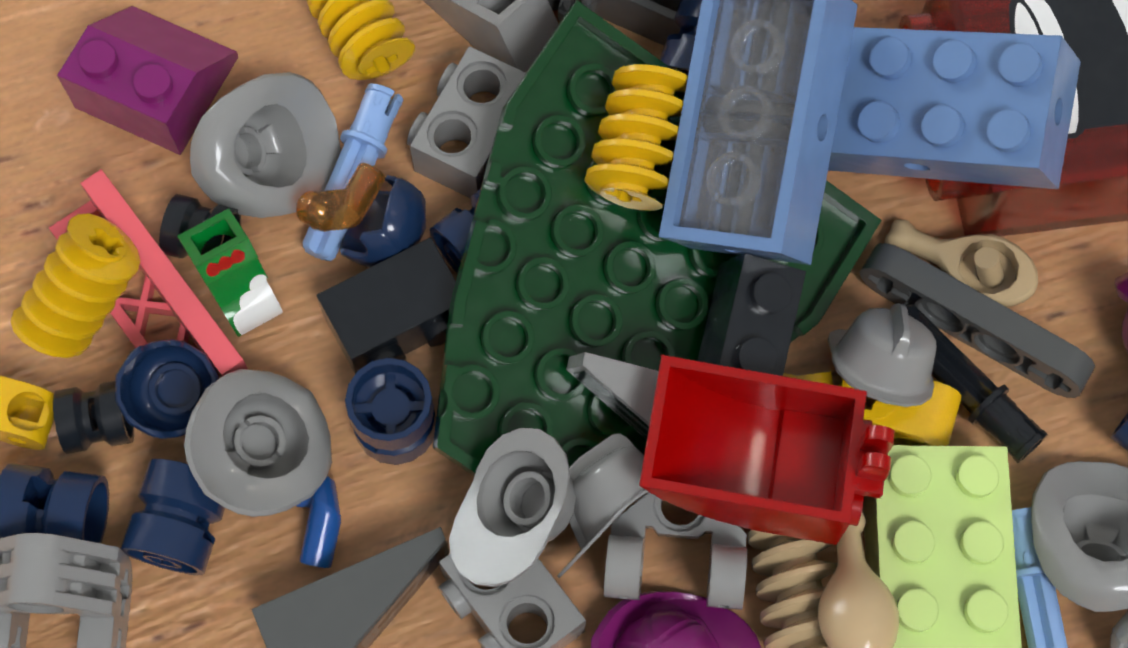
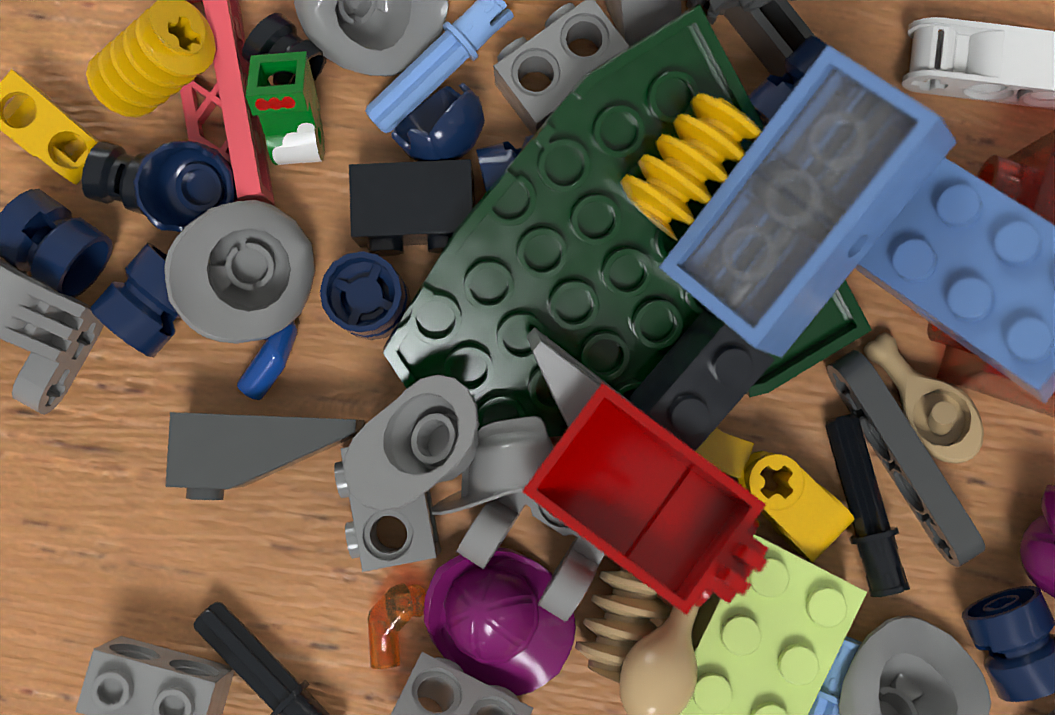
camera: 30 degrees right, 15 degrees up
(343, 207) = (410, 94): clear orange arm -> none
(886, 356) = (804, 463): light grey piece -> none

